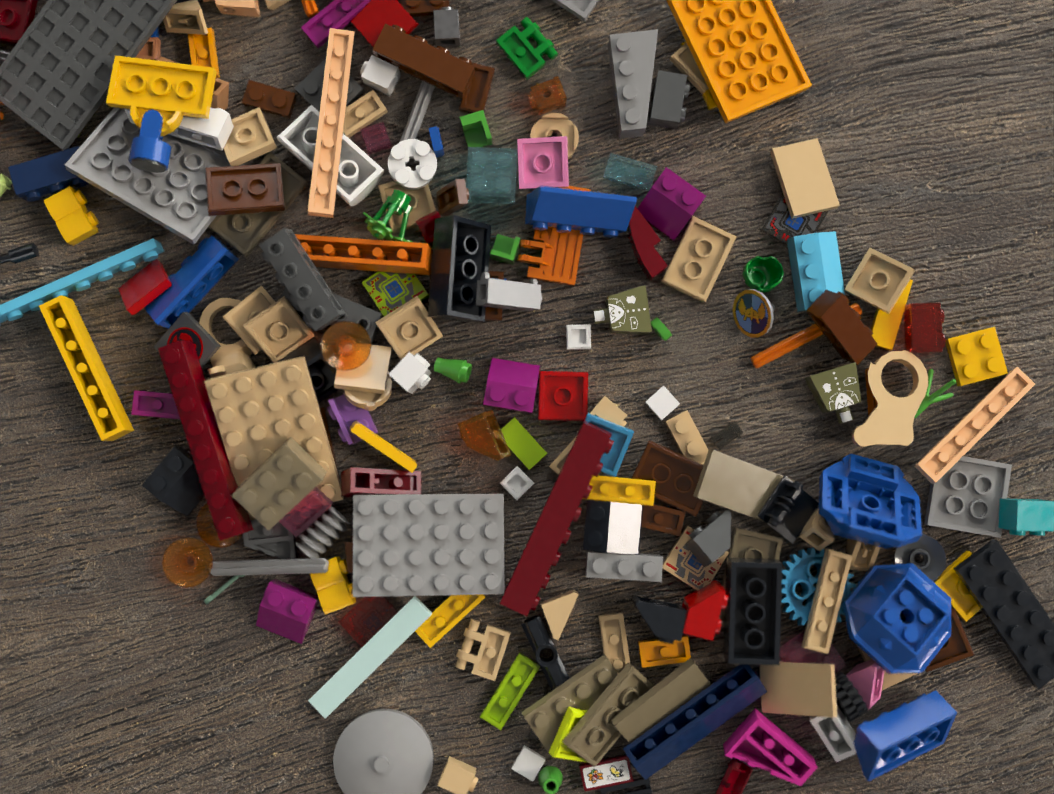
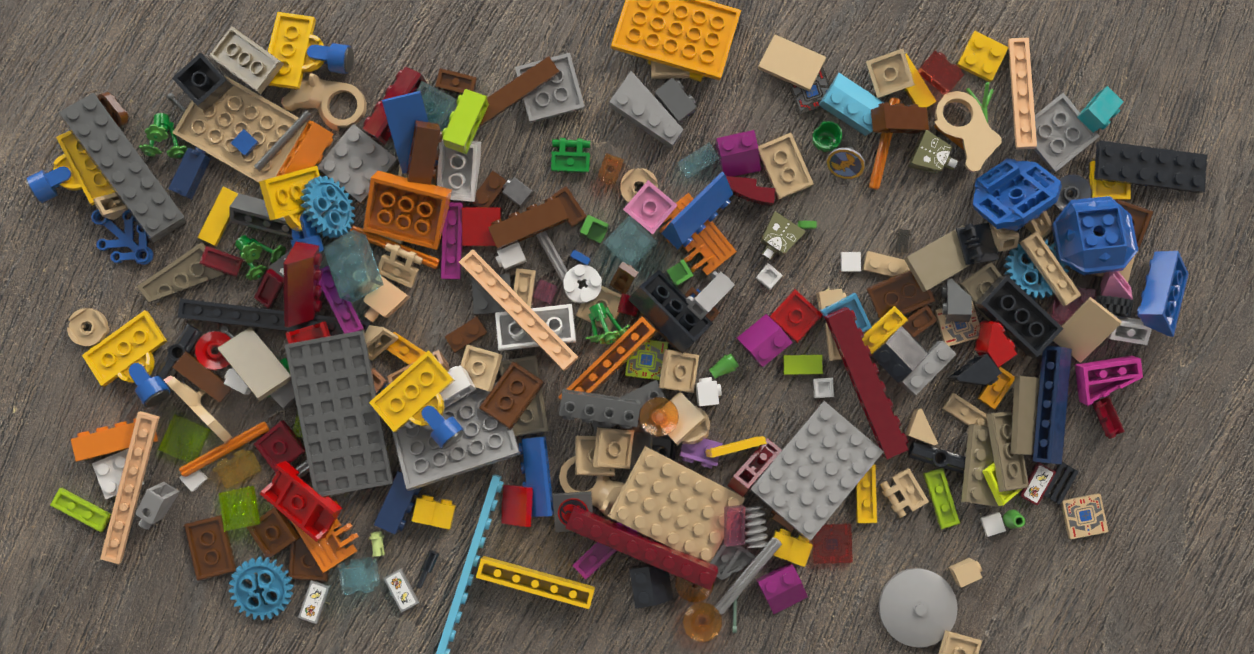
camera: 45 degrees left, 0 degrees up
(279, 483) = (707, 526): dark tan brick -> none
(370, 657) = (851, 562): light aqua tile -> none
(484, 435) = (780, 382): clear orange slope -> none

